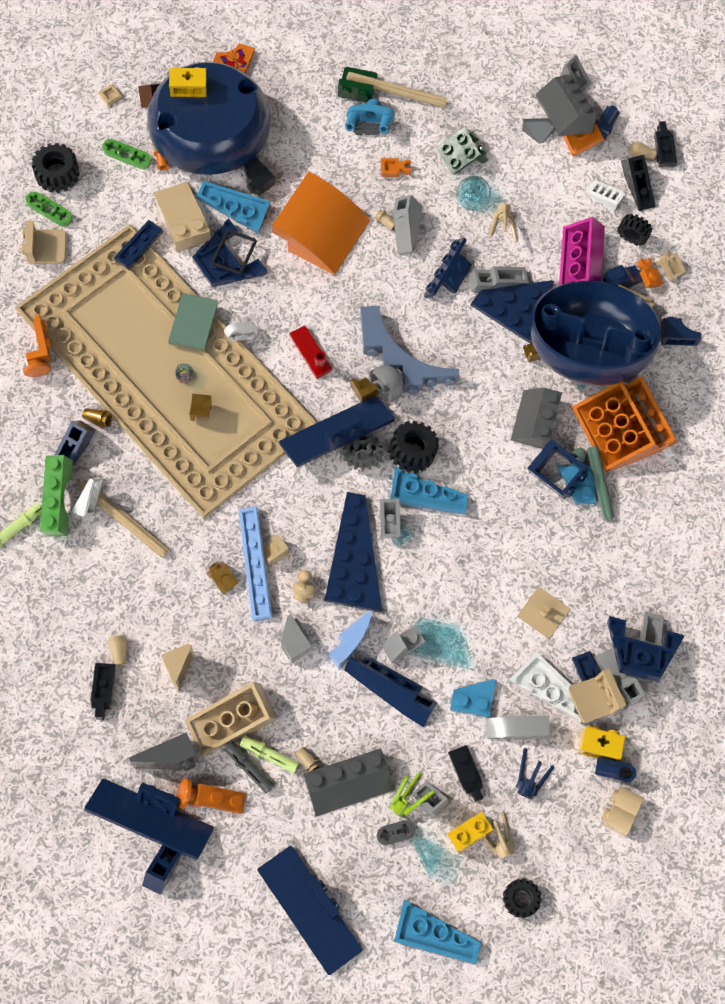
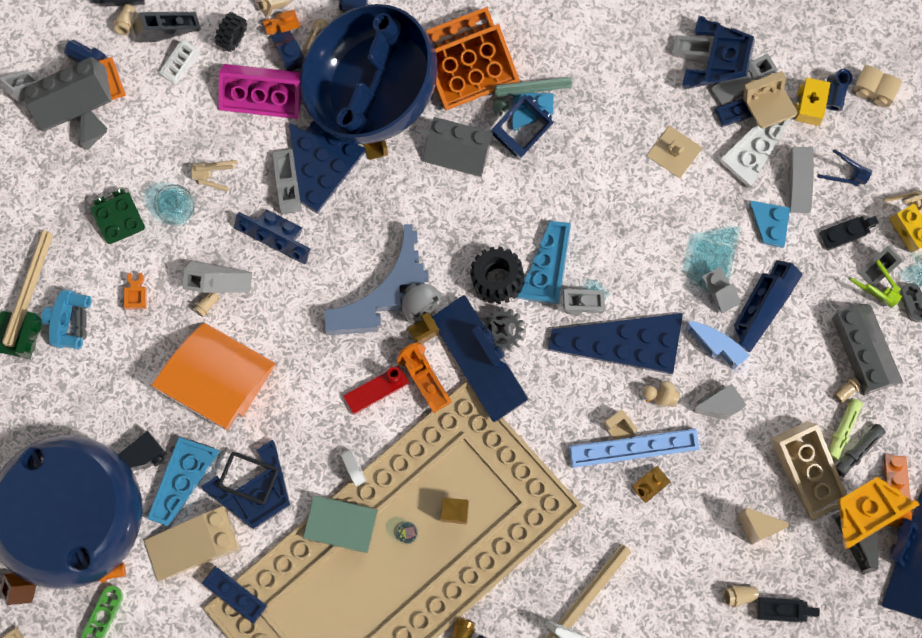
camera: 85 degrees left, 5 degrees up
(184, 754) = (871, 509): none -> light orange wing
(187, 82) = (32, 540): yellow brick -> none
(322, 387) = (427, 382): none -> orange piece

